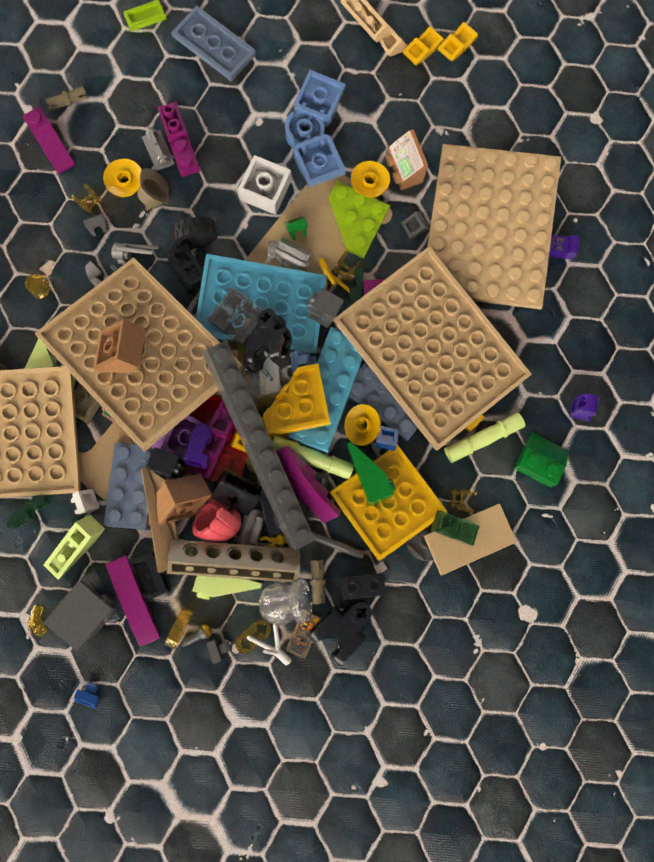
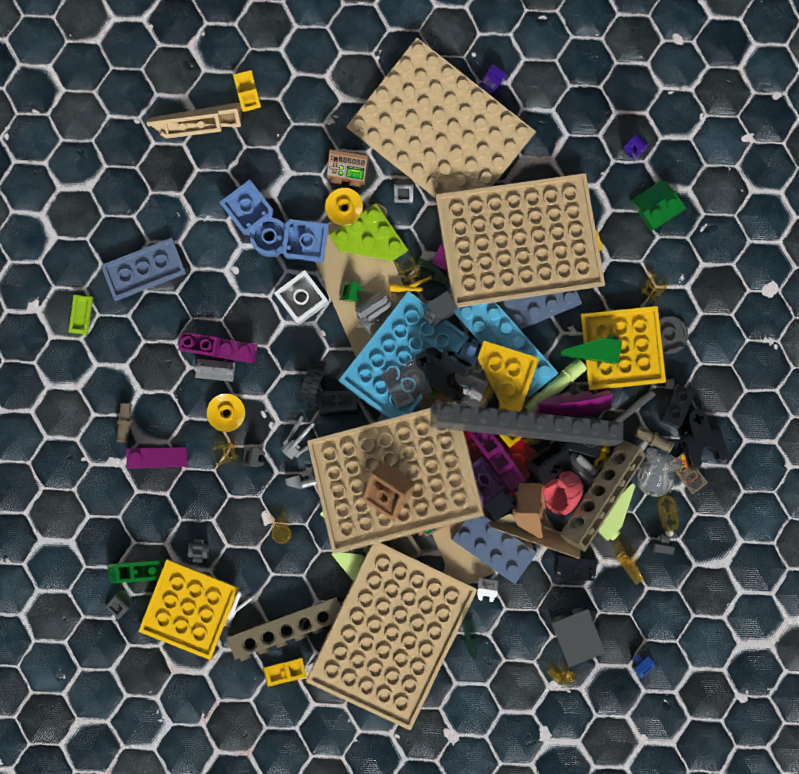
camera: 50 degrees left, 5 degrees up
(74, 545) = (518, 616): yellowish green slope -> none
(132, 600) = (588, 592): magenta slope -> none
(152, 189) = (251, 392): dark tan piece -> none
(199, 440) = (499, 473): dark purple leg -> none
(203, 632) = (642, 550): dark grey piece -> none
(277, 651) = (689, 501): white plant -> none
(356, 421) = (549, 340): yellow dish -> none
(387, 438) = (571, 319): blue tile -> none
(455, 528) = (674, 307): clear green slope -> none
(458, 42) = (260, 59): yellow slope -> none
(484, 437) = (614, 240): yellowish green piece -> none
(492, 535) = (688, 300): tan tile -> none

